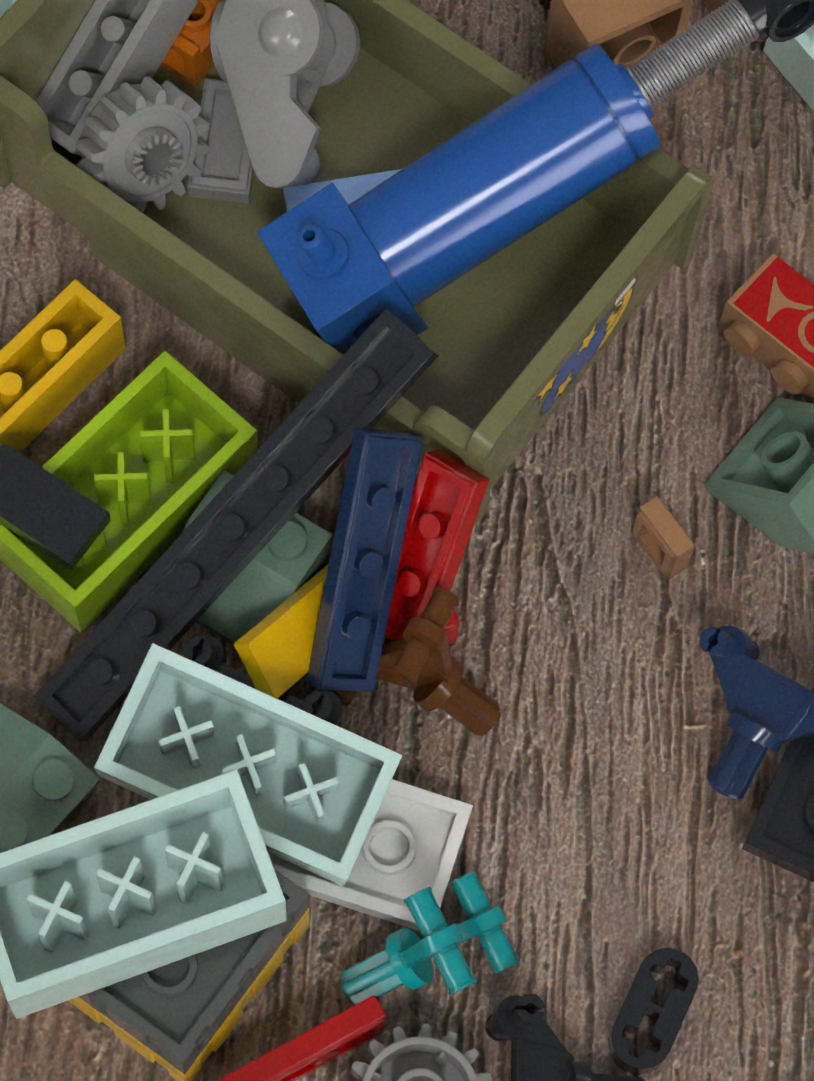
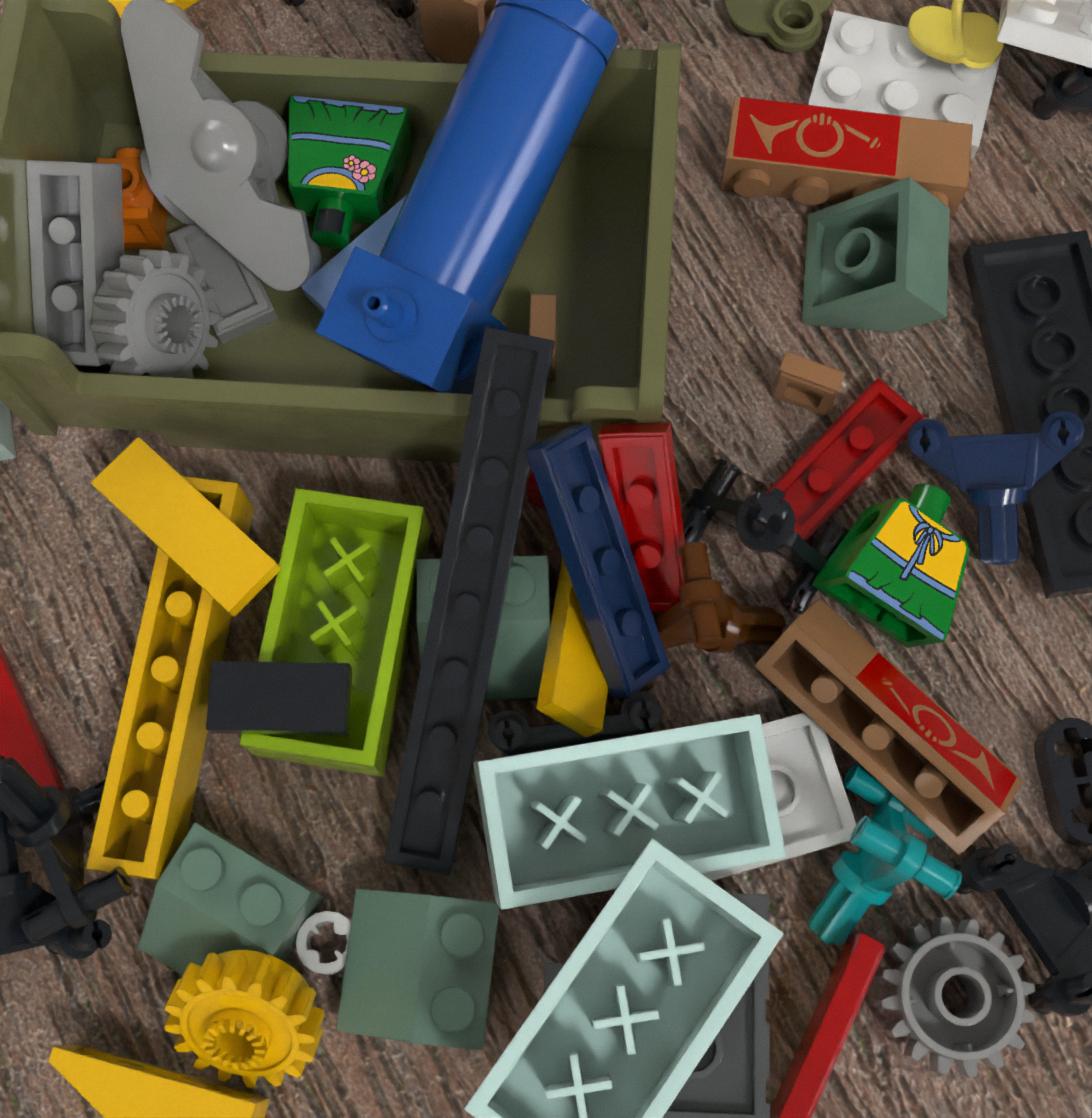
camera: 25 degrees left, 5 degrees up
(56, 325) = (186, 526): none -> yellow tile
(389, 108) = (345, 162): none -> green torso
(454, 352) = (544, 322): none -> medium nougat tile
(520, 852) = (890, 726): none -> medium nougat brick
(531, 625) = (763, 525): none -> black axle
(626, 735) = (900, 567): none -> green torso
(641, 623) = (846, 456): none -> red tile

